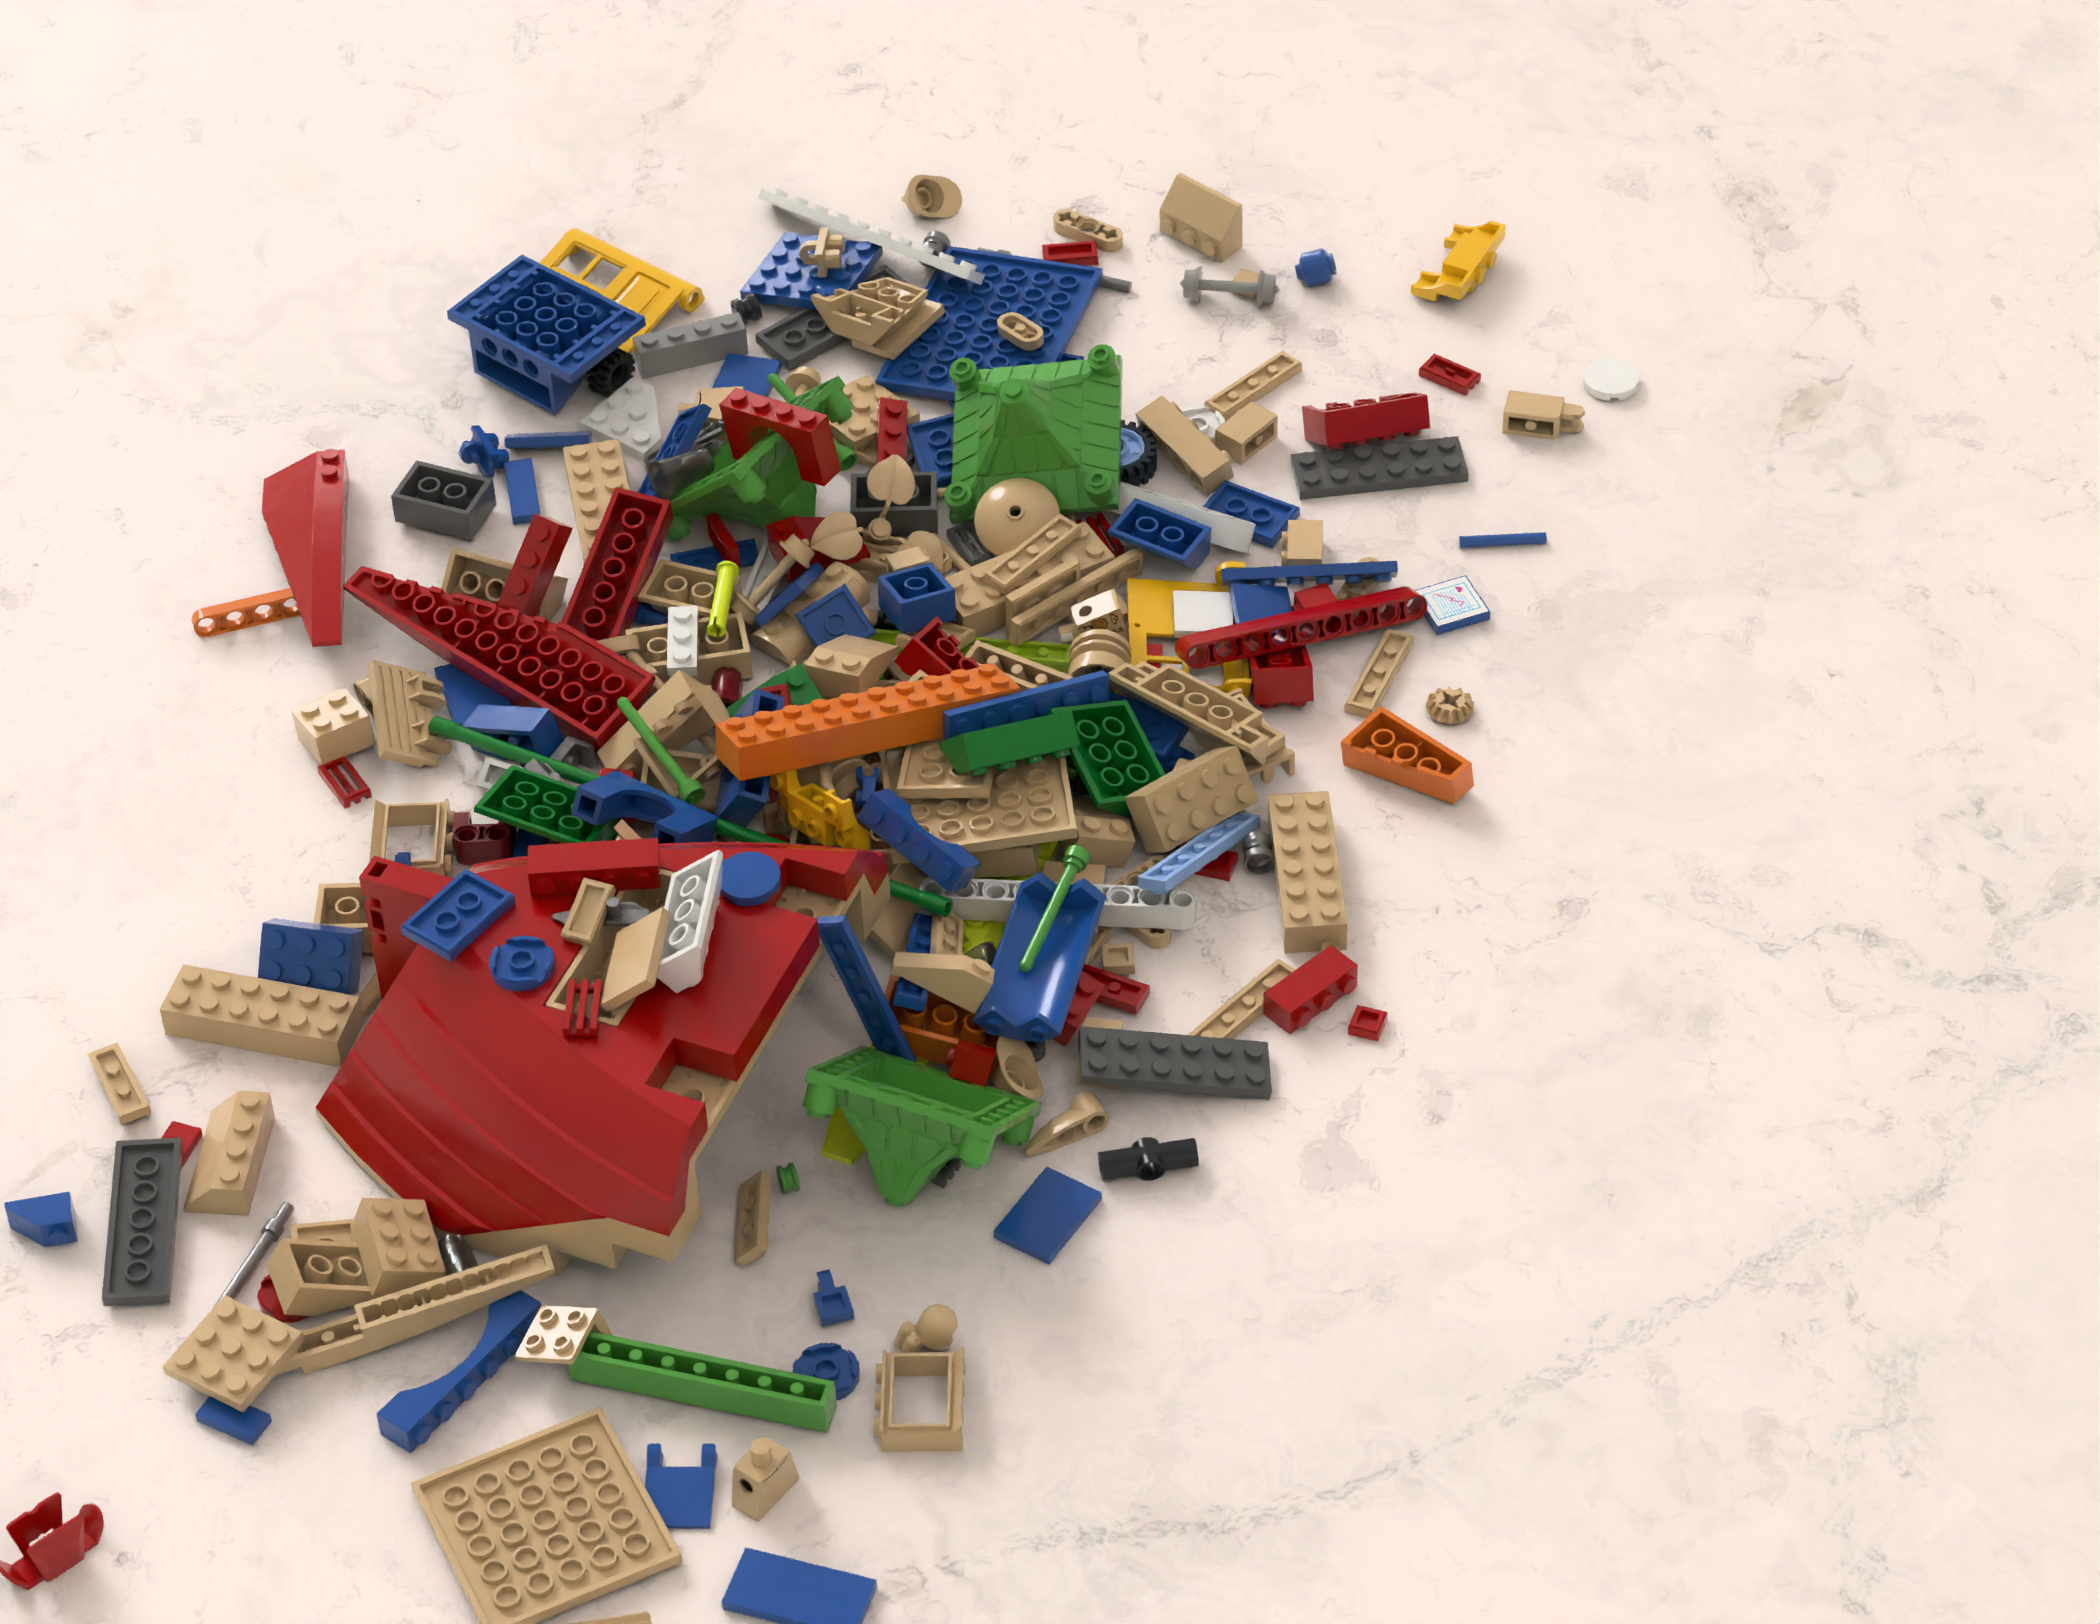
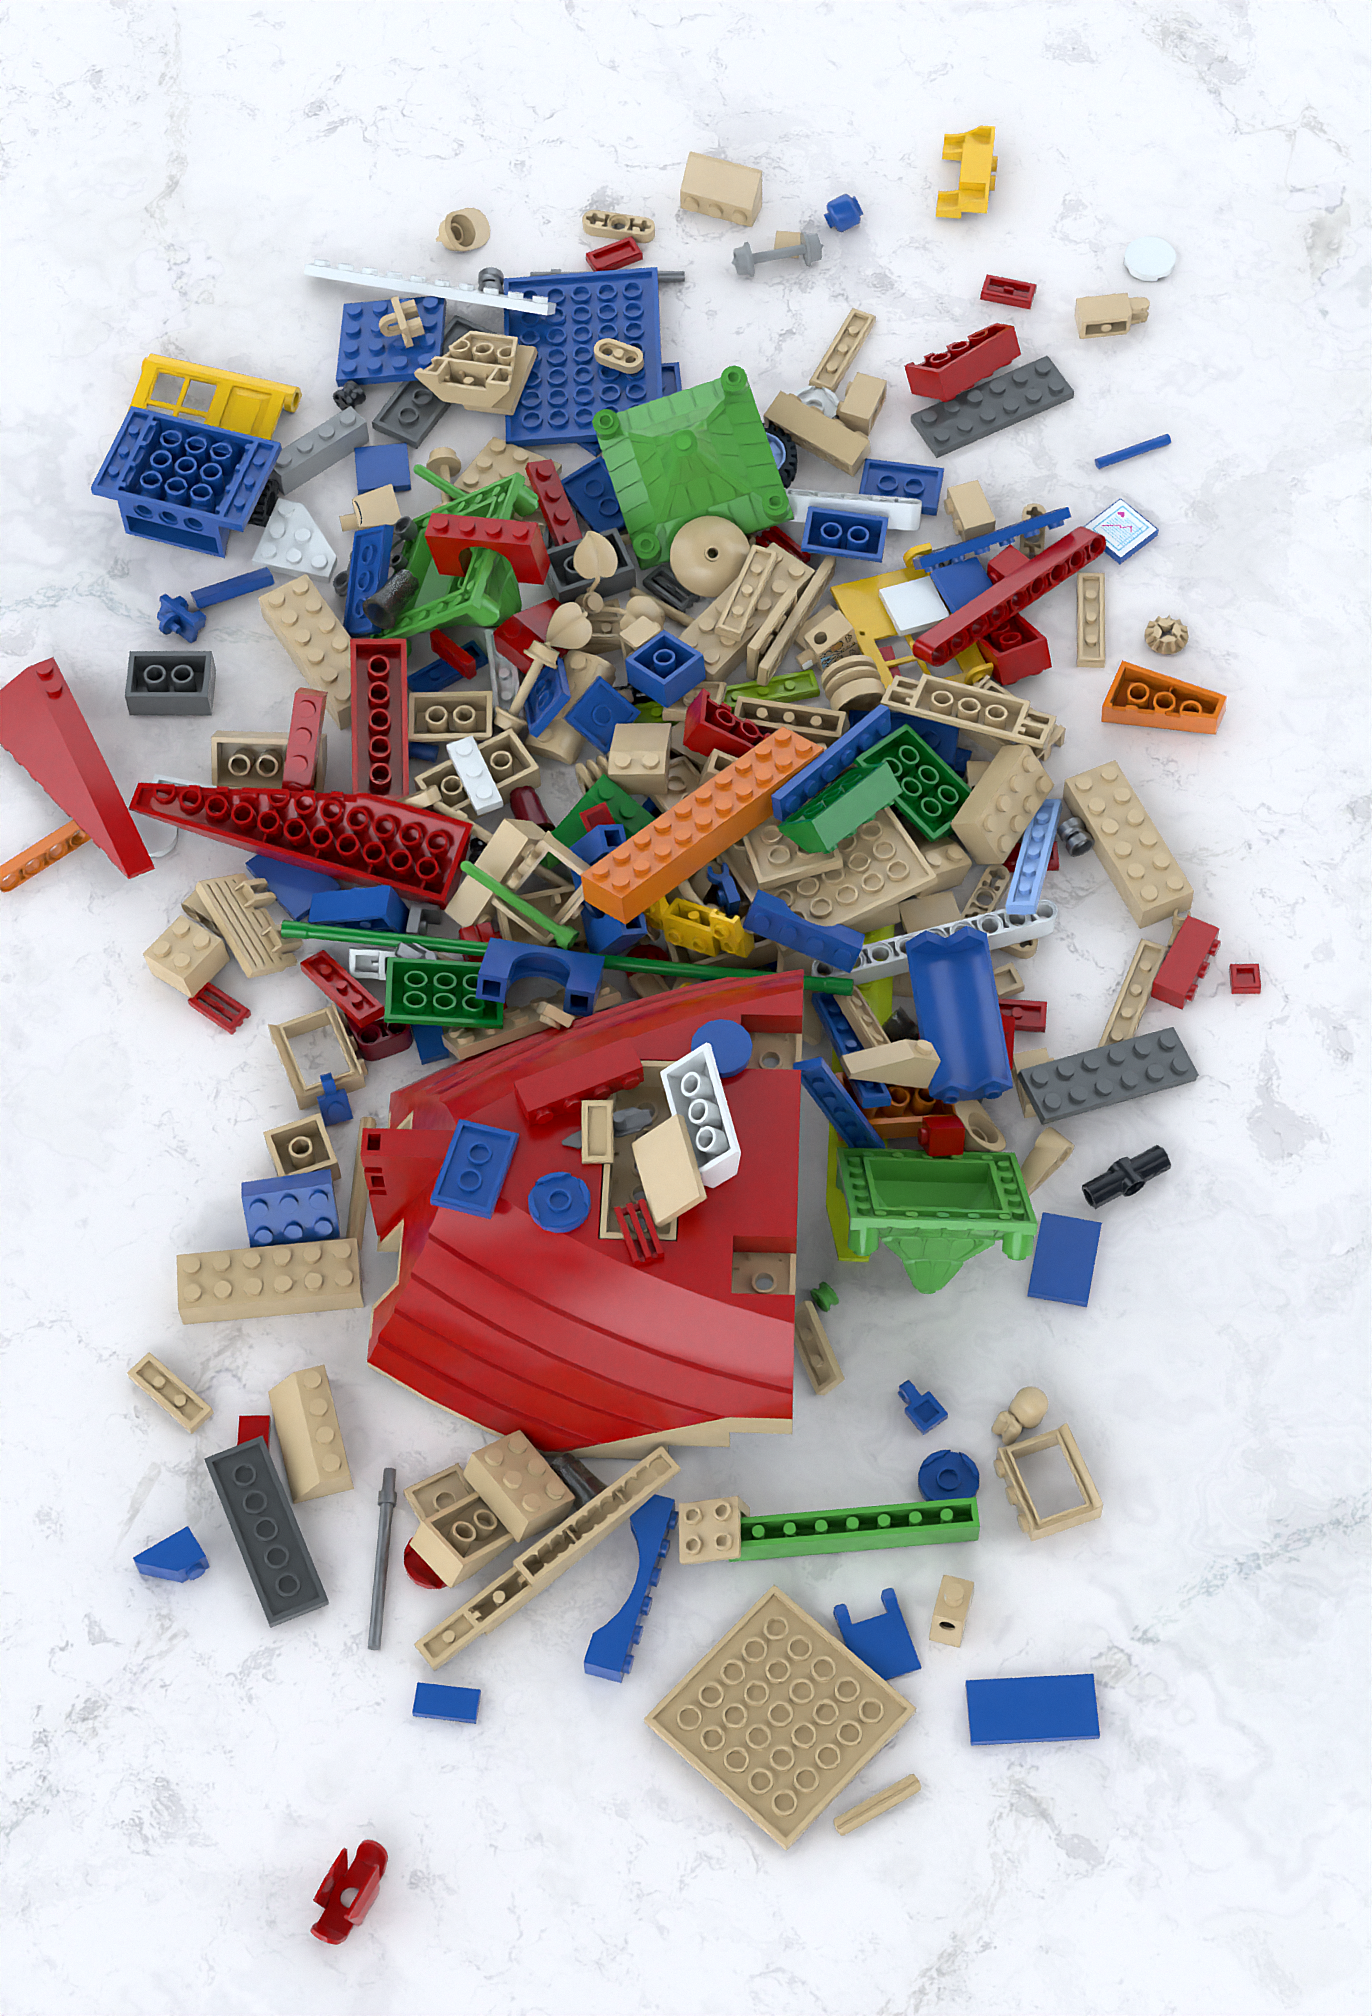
camera: 20 degrees left, 15 degrees up
(233, 1353) = (422, 1642): tan plate -> none
(362, 623) = (156, 835): none -> white tile
(461, 789) = (342, 988): none -> red plate
(521, 490) = (233, 649): blue tile -> none
(727, 572) = (490, 720): neon yellow pin -> none
(1075, 861) = (948, 908): bright green piece -> none

